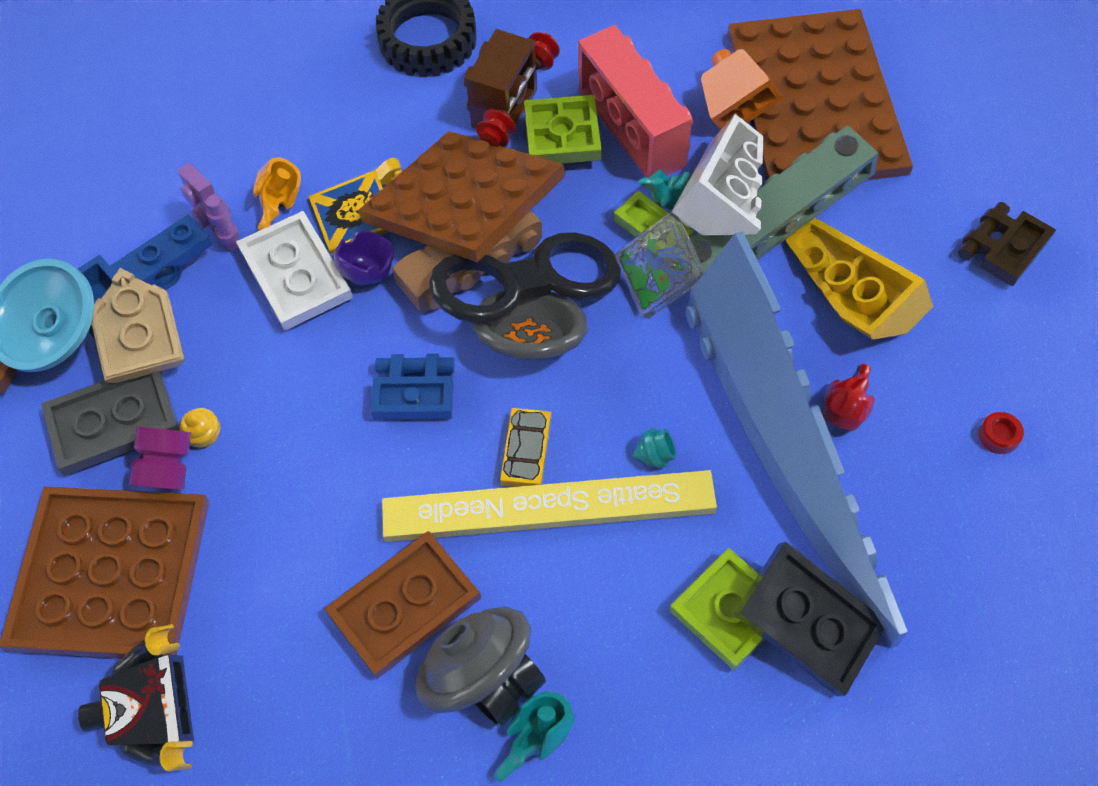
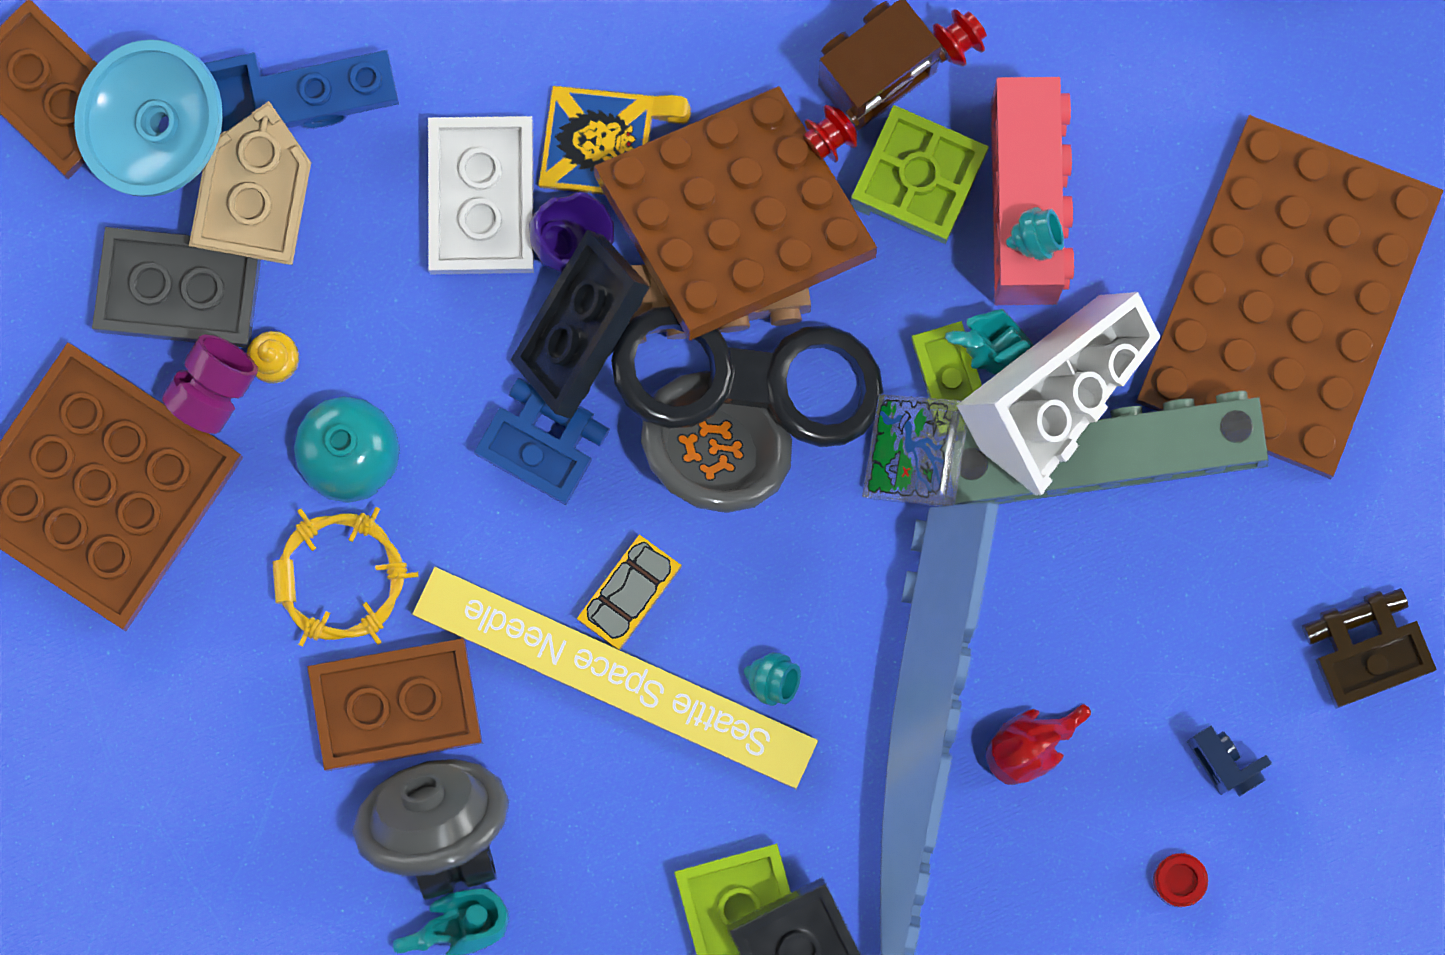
camera: 30 degrees right, 20 degrees up
(145, 704) = (74, 675): torso -> none
(208, 206) = (412, 51): medium lavender plate -> none
(276, 184) = (518, 55): light orange piece -> none
(280, 457) = (346, 449): none -> teal cylinder
(316, 583) = (285, 581): none -> yellow piece
(399, 292) = (579, 324): none -> black plate
(657, 95) = (1037, 234): none -> teal plate
(737, 88) = (1178, 240): orange torso -> none
(860, 283) = (1141, 616): yellow wedge -> none
(973, 347) = (1218, 759): none -> dark blue bracket

